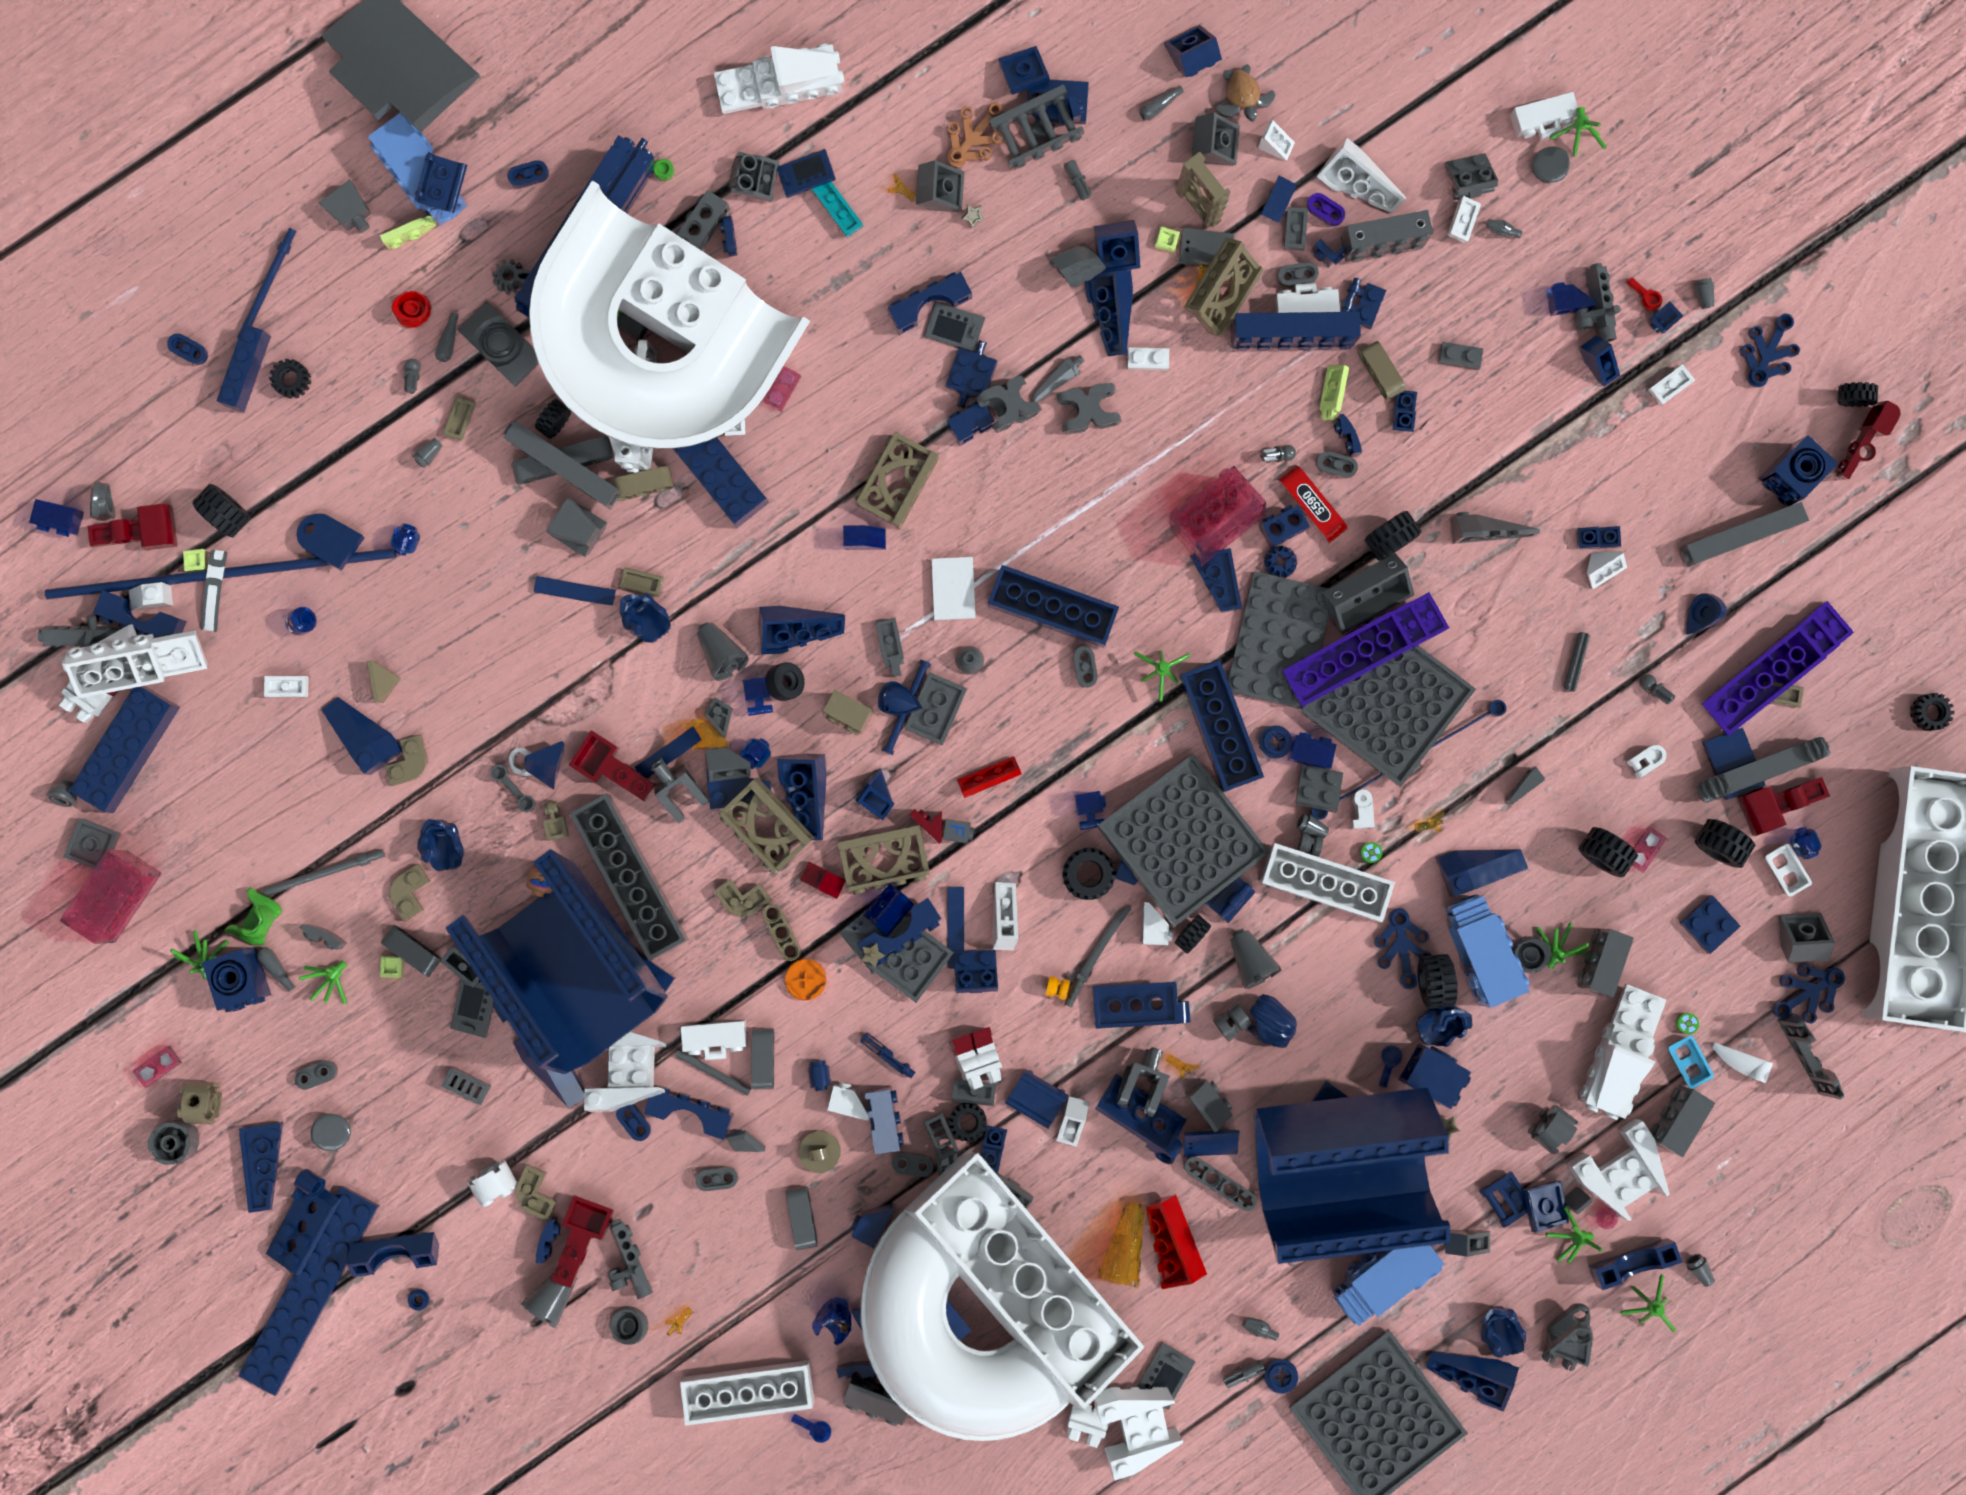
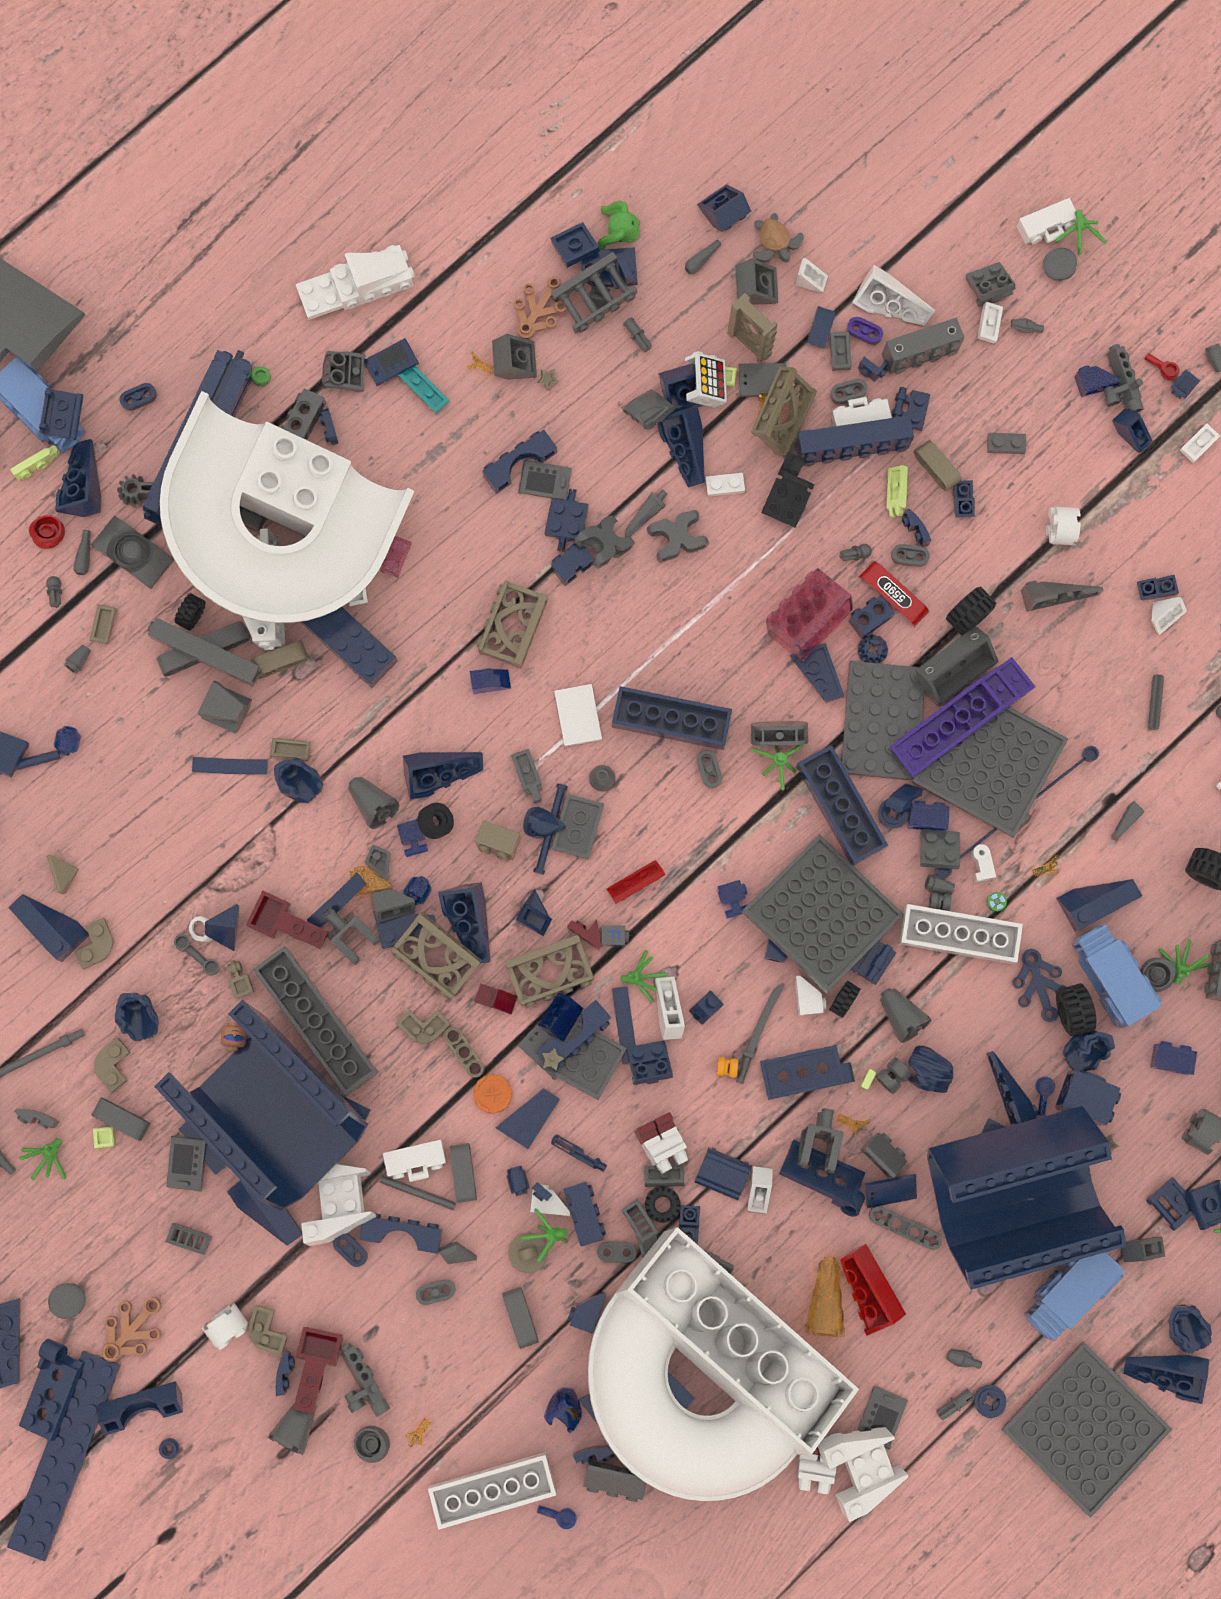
camera: 10 degrees left, 5 degrees down
(315, 1074) = (45, 1250): dark grey plate -> none
(391, 1172) = (129, 1332): none -> nougat plant
(454, 262) = (81, 488): none -> dark blue wedge
(459, 965) = (171, 1123): dark grey slope -> none
(840, 1012) = (529, 1119): none -> dark blue wing
(841, 1092) = (540, 1192): none -> dark blue plate
(846, 1139) = (552, 1235): none -> bright green plant
(974, 878) = (636, 976): none -> bright green plant
(1044, 921) = (706, 1007): none -> dark blue bracket
(1077, 55) = (622, 224): none -> bright green hair
(1088, 892) = (752, 945): black tyre -> none
(1148, 241) = (709, 380): none -> panel
(1166, 639) = (779, 733): none -> dark grey brick
(1204, 1022) = (867, 1079): none -> yellowish green tile
(1215, 379) = (788, 494): none -> black plate
(1288, 727) = (903, 797): none -> dark blue slope
(1358, 1070) = (1015, 1101): none -> dark blue wedge
(1508, 456) = (1063, 526): none -> white brick
(1532, 1047) = (1174, 1059): none -> clear blue brick

